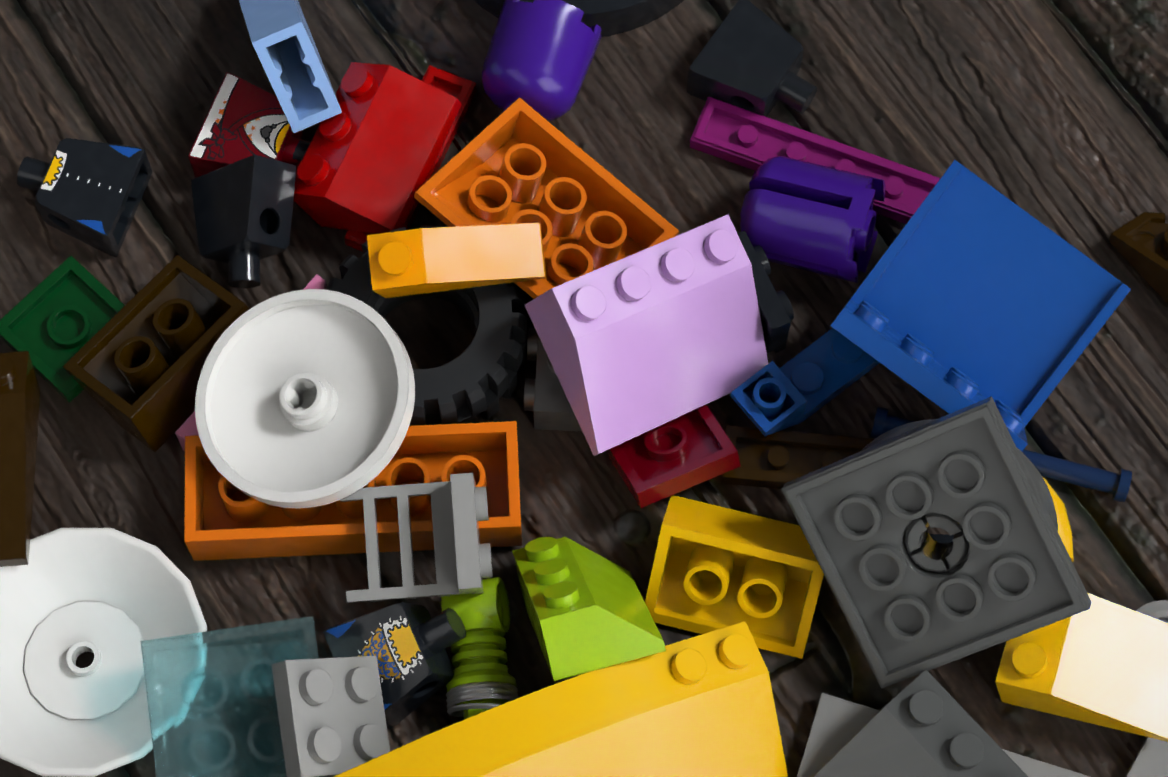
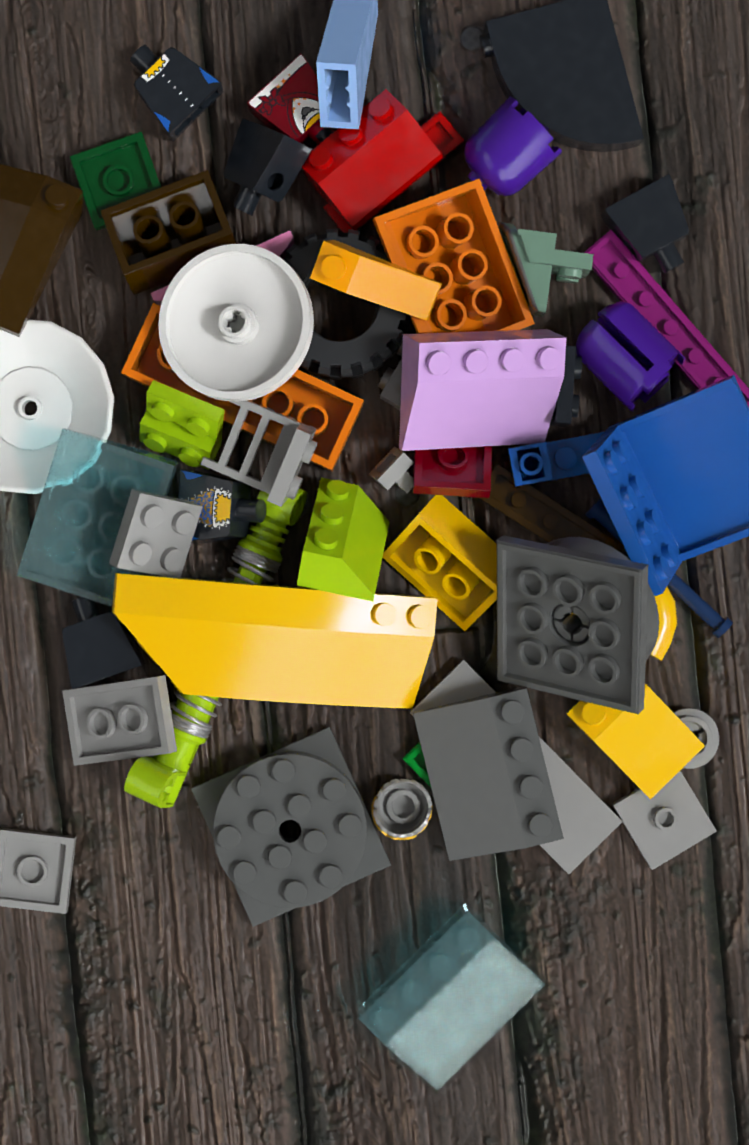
camera: 30 degrees right, 20 degrees up
(296, 569) = (181, 425): none -> lime plate
(602, 500) = (394, 470): none -> light grey tile
(654, 157) = (536, 259): none -> sand green piece

